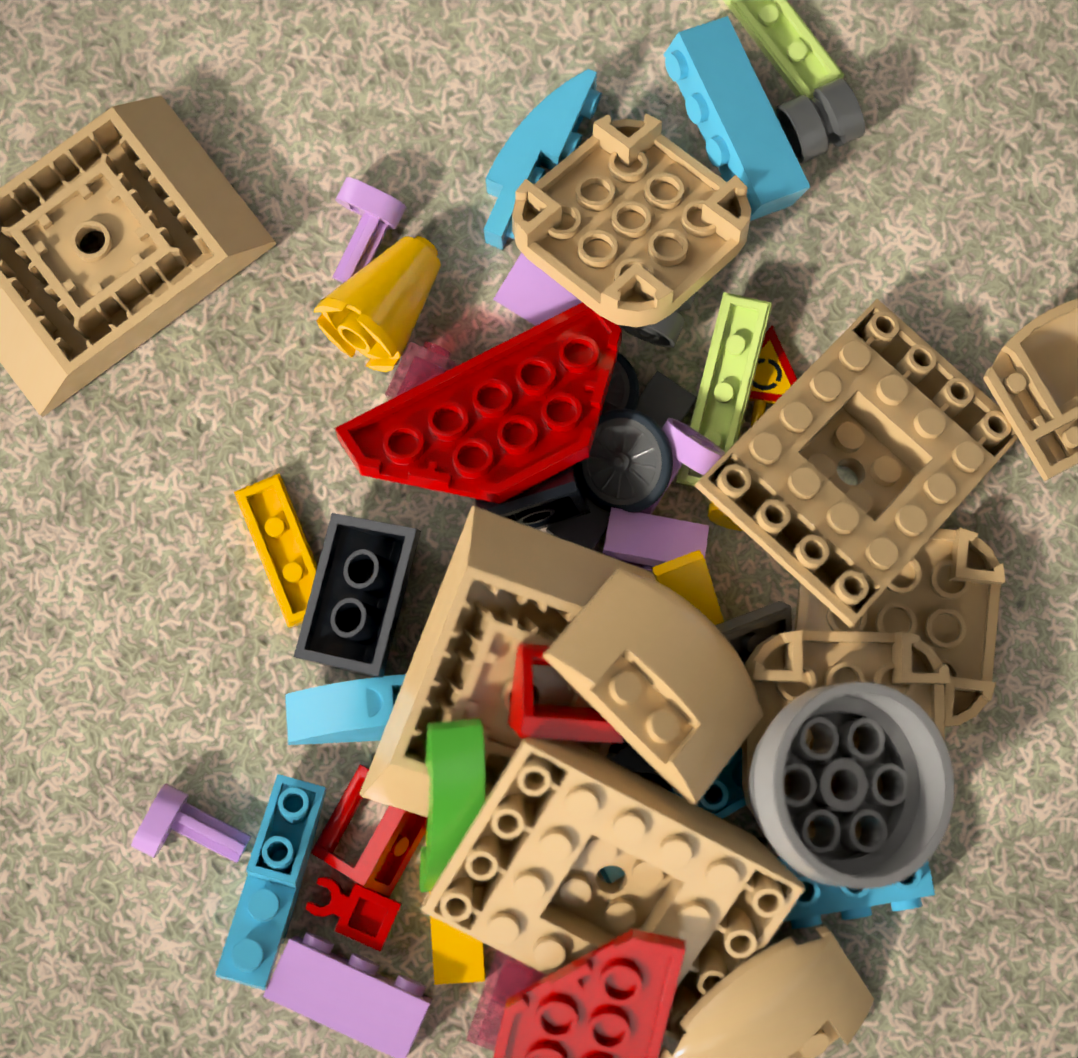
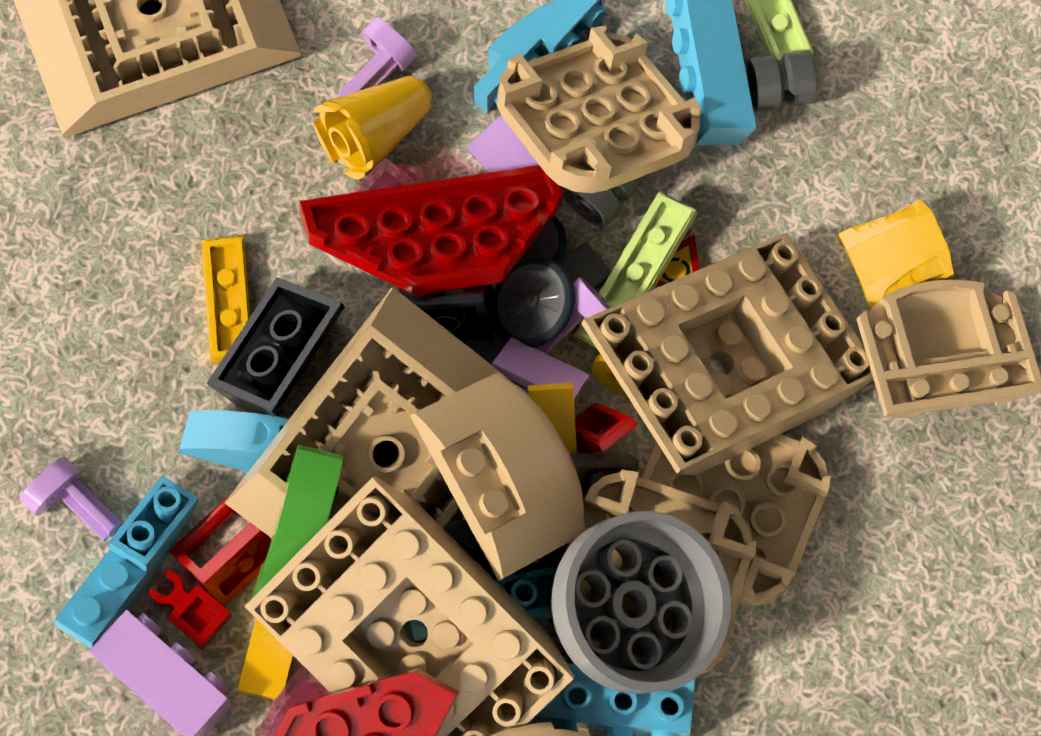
camera: 10 degrees right, 10 degrees down
(551, 721) = (400, 476): red tile -> none
(744, 586) = (601, 428): none -> red slope
(1003, 284) = (897, 251): none -> yellow slope

